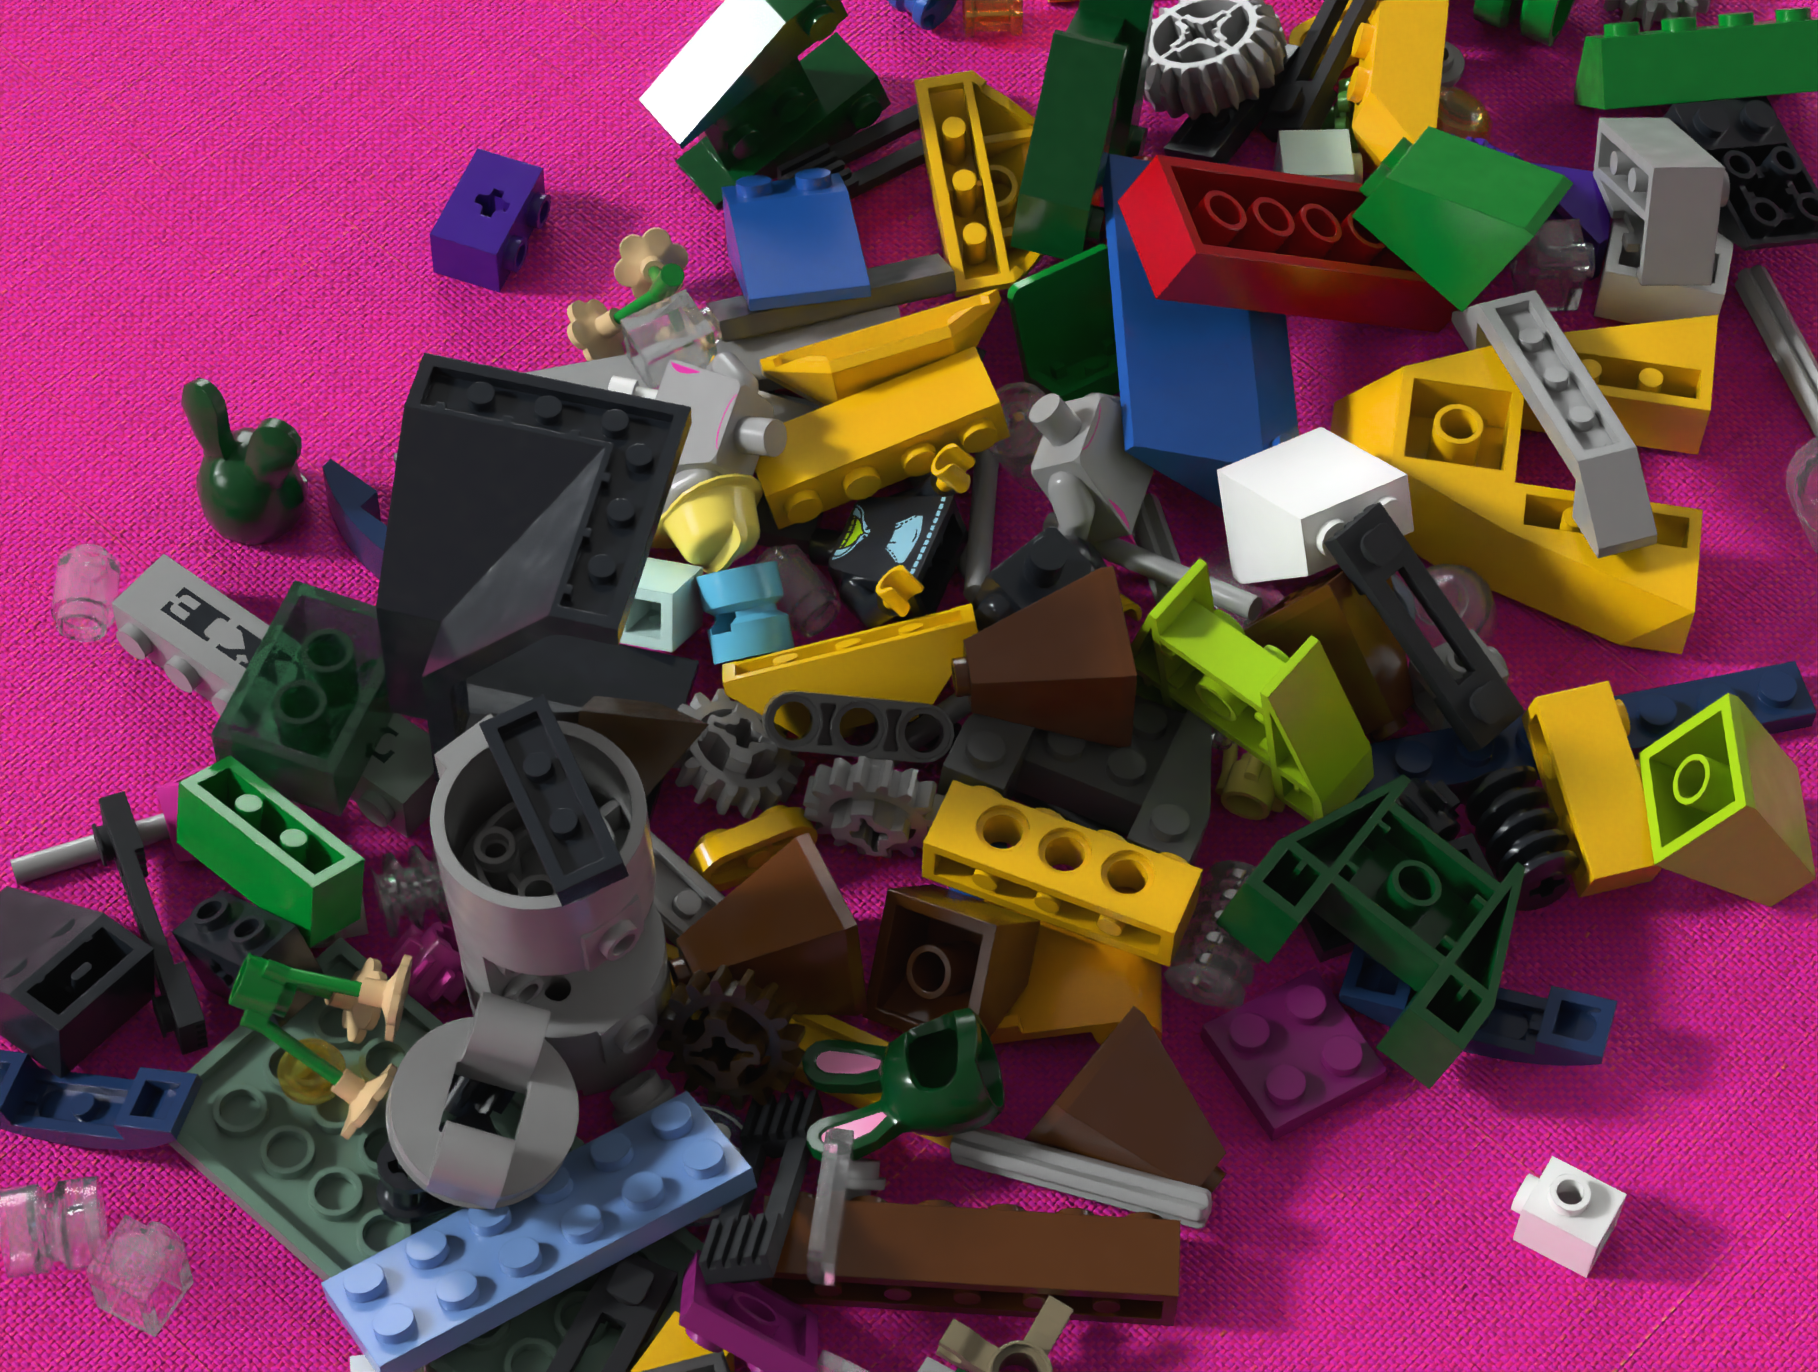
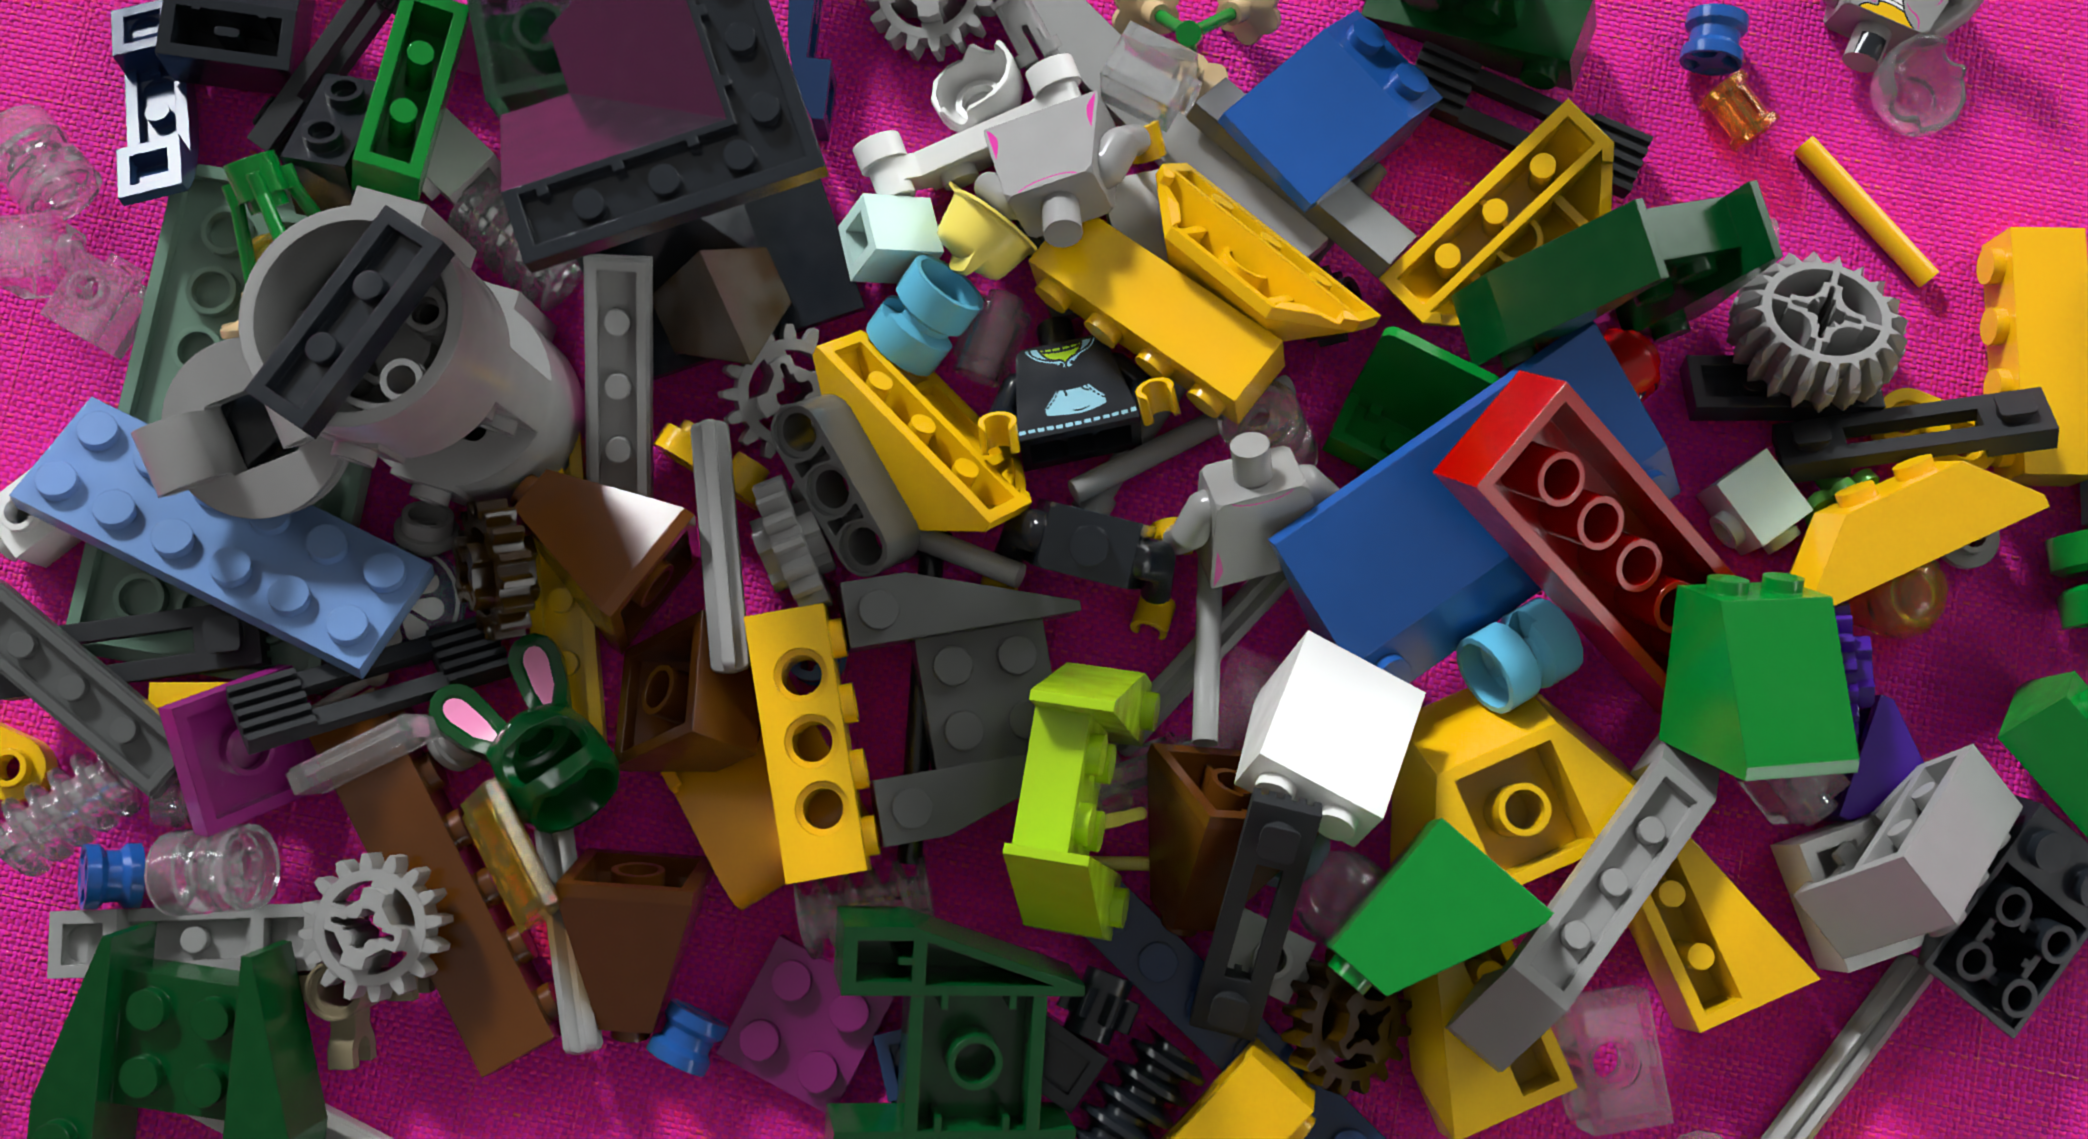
camera: 55 degrees right, 25 degrees up
(227, 1250) = (99, 302): none -> clear brick
(844, 846) = (719, 546): none -> light grey axle
(975, 1261) = (353, 945): none -> light grey gear
(1003, 1141) = (510, 856): none -> clear yellow slope
(1057, 664) = (990, 618): reddish brown slope -> none
(1248, 1138) = (687, 1037): none -> blue wheel
(1331, 369) = (1519, 655): none -> medium azure wheel
(1494, 498) = (1430, 913): none -> green slope
(1547, 645) = (1342, 1023): none -> dark brown gear
(1723, 489) = (1637, 1089): none -> clear brick

